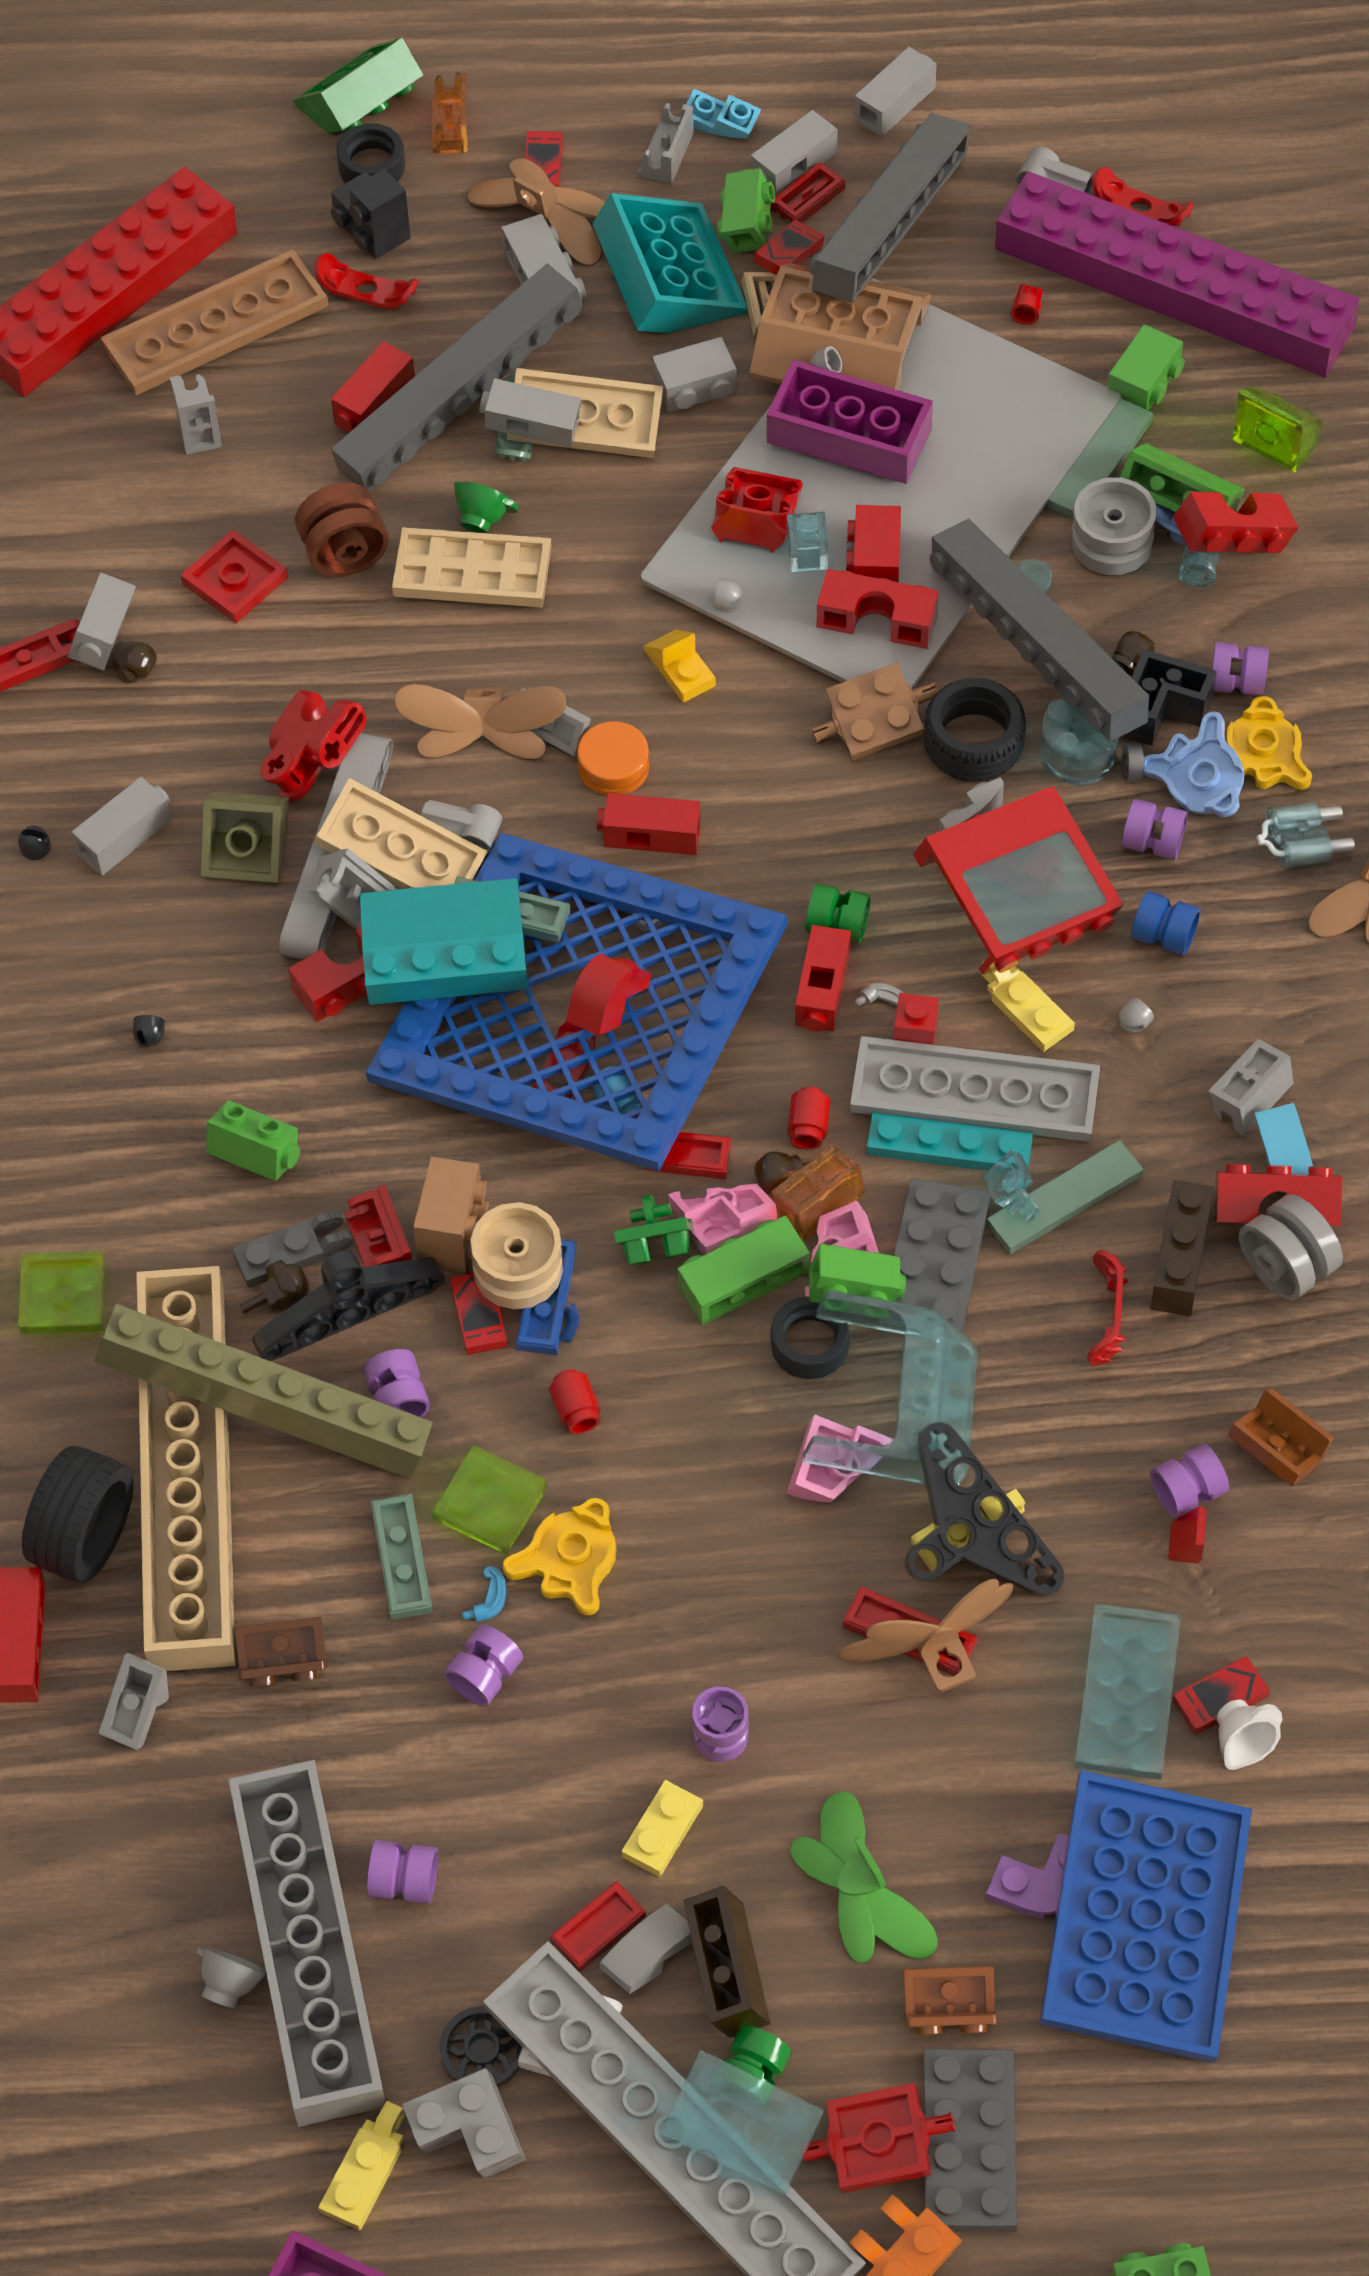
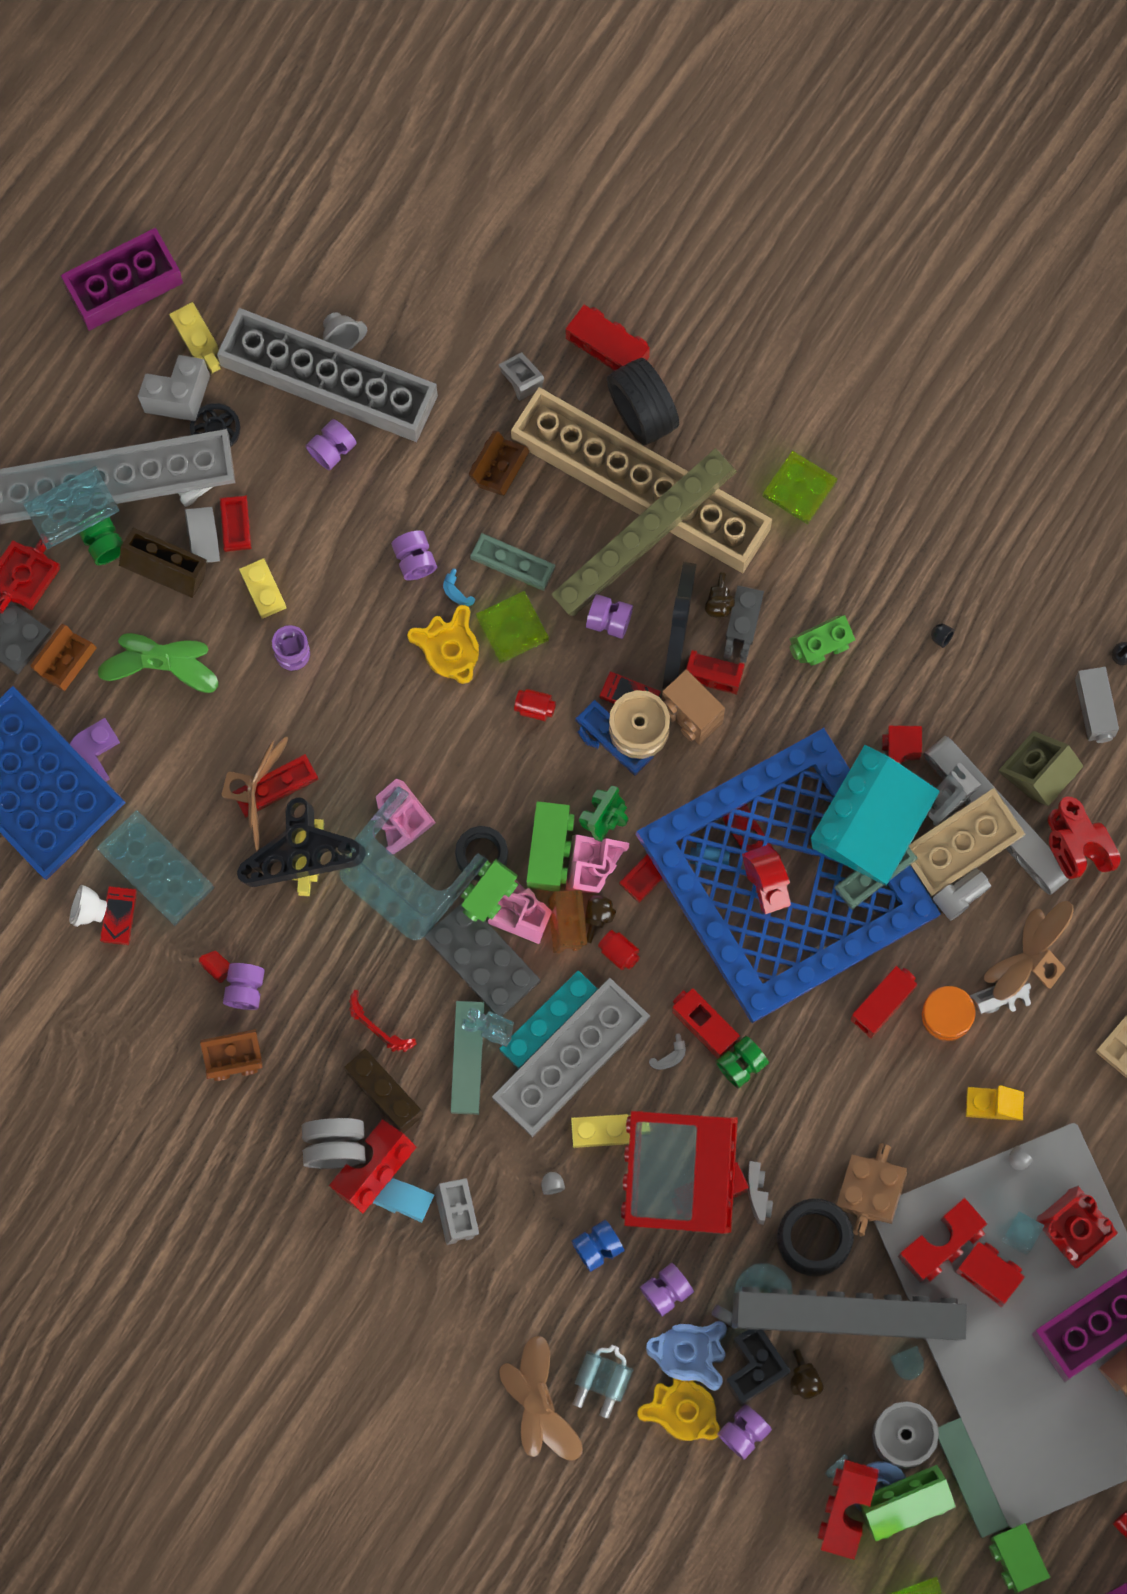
camera: 125 degrees right, 15 degrees up
(916, 1018) = (635, 1052): red brick -> none

